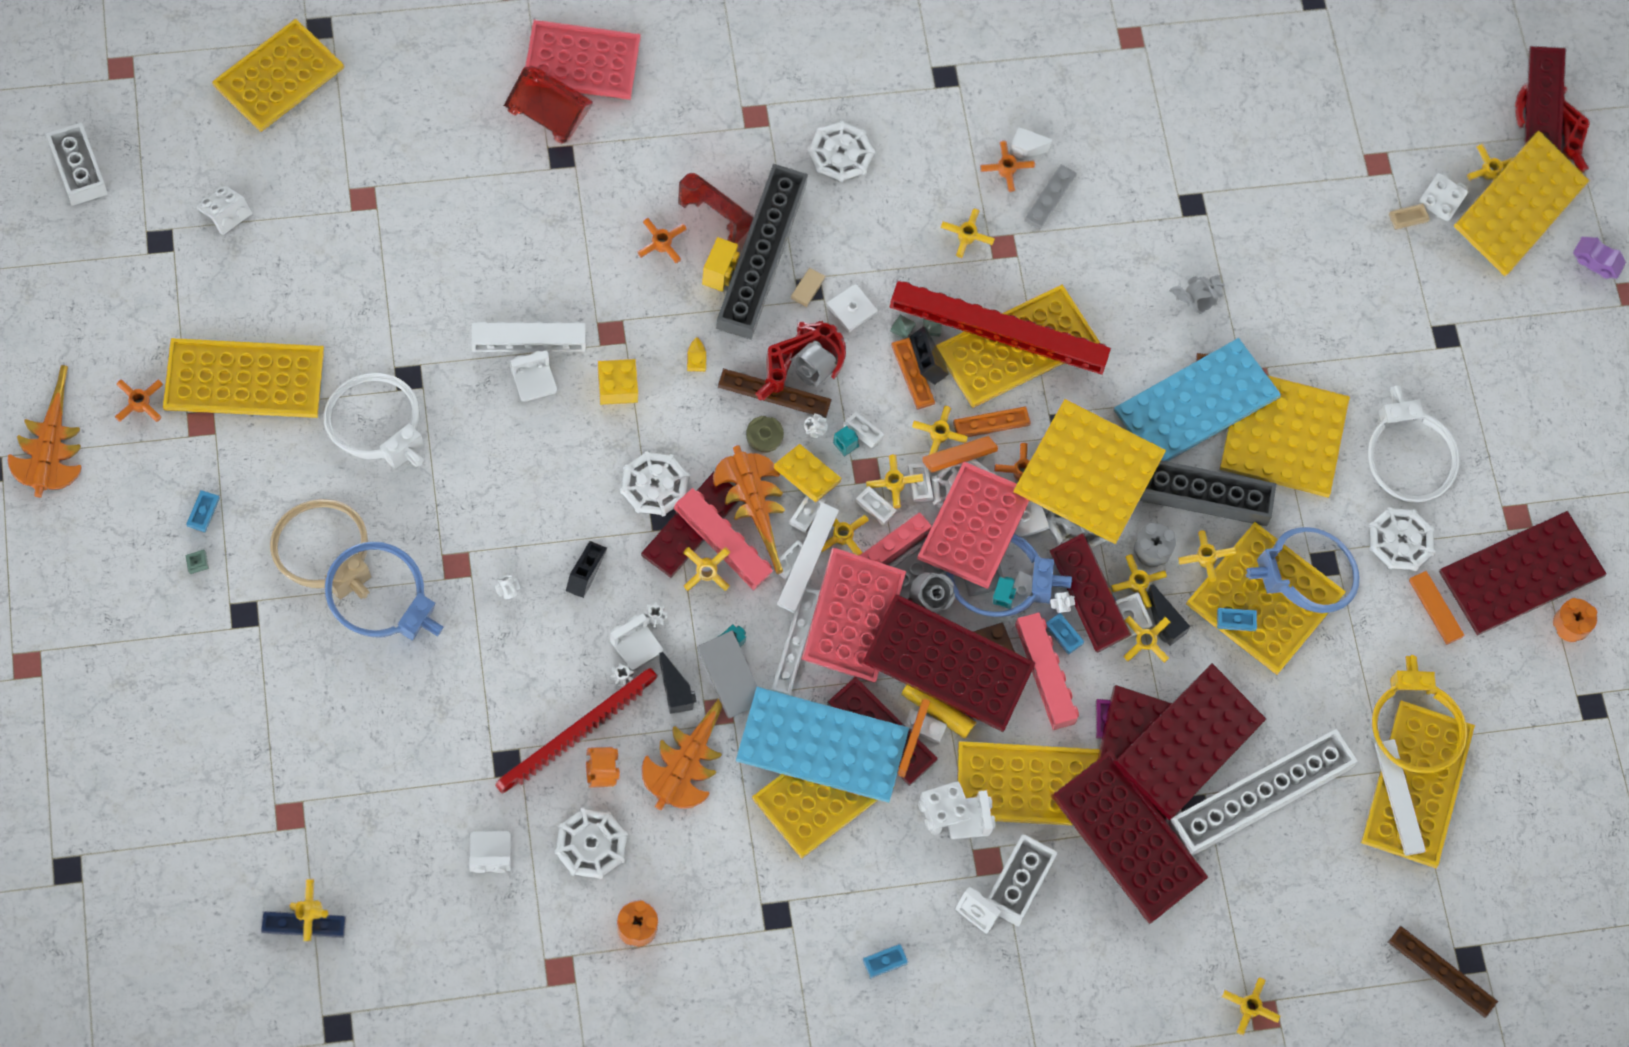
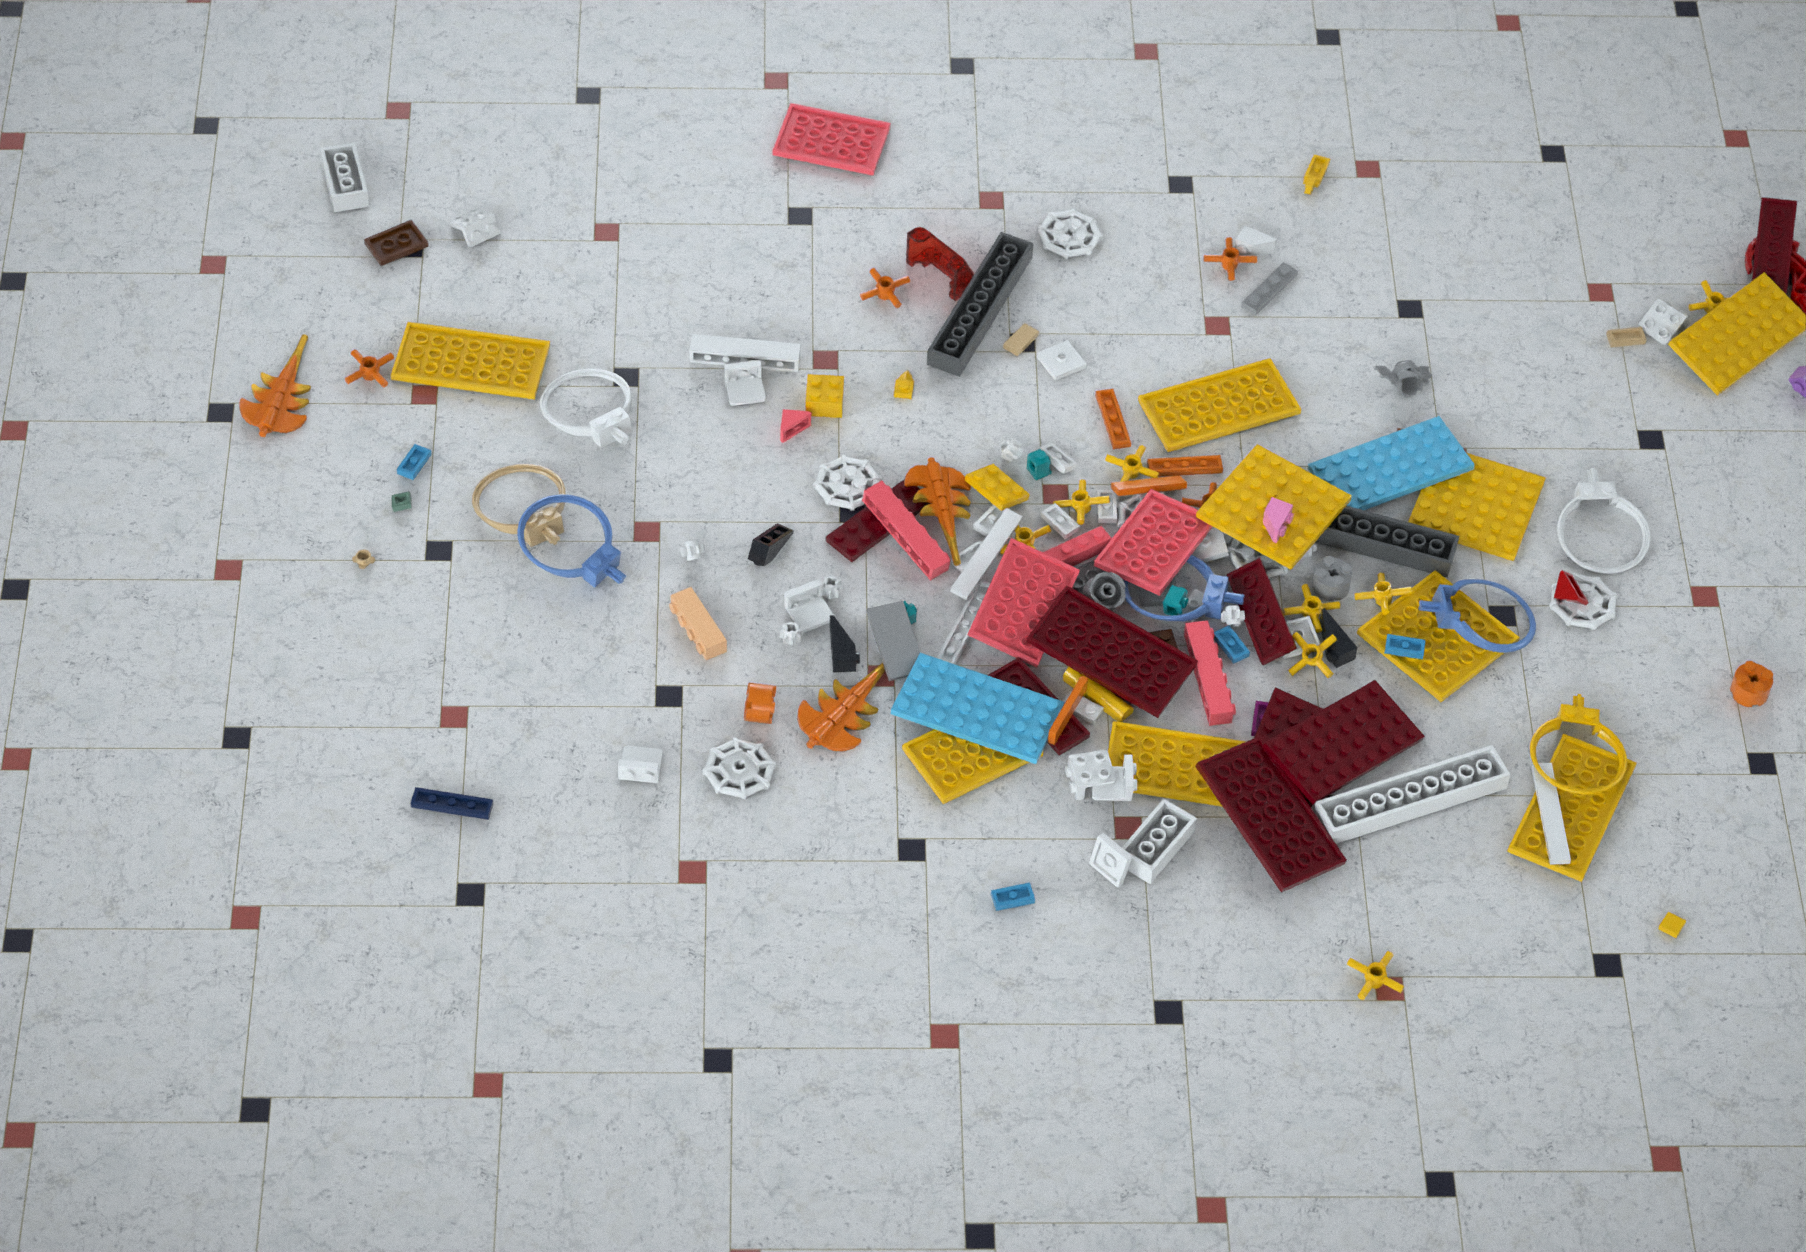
camera: 15 degrees right, 15 degrees down
(143, 238) = (396, 242): none -> reddish brown plate
(167, 631) = (363, 558): none -> tan plate
(278, 75) = (543, 126): yellow plate -> none
(308, 910) = (458, 786): yellow bar -> none
(526, 675) = (698, 623): none -> light nougat brick
(548, 103) = (792, 167): clear red windscreen -> none
(576, 730) = (739, 673): red gear -> none
(589, 418) = (793, 423): none -> coral slope
(635, 934) = (773, 836): orange brick -> none
(706, 562) = (893, 547): yellow bar -> none
(720, 264) = (936, 308): yellow brick -> none
(764, 434) = (960, 454): olive tile -> none
(781, 353) = (1011, 379): red piece -> none
(788, 397) = (974, 420): reddish brown plate -> none
(813, 364) = (1016, 397): light grey brick -> none
(903, 326) = (1108, 379): sand green tile -> none
(928, 356) = (1129, 404): black slope -> none
(933, 328) = (1137, 381): sand green tile -> none
(970, 227) = (1183, 309): yellow bar -> none
(1000, 327) = (1203, 384): red brick -> none
(1080, 50) = (1315, 173): none -> yellow hinge
(1096, 491) = (1276, 518): none -> bright pink slope
(1388, 531) = (1569, 590): none -> red slope
(1436, 607) = (1611, 662): orange tile -> none
(1442, 971) = (1576, 969): reddish brown plate -> none
(1522, 572) = (1703, 642): dark red plate -> none
(1527, 906) = (1672, 924): none -> yellow tile

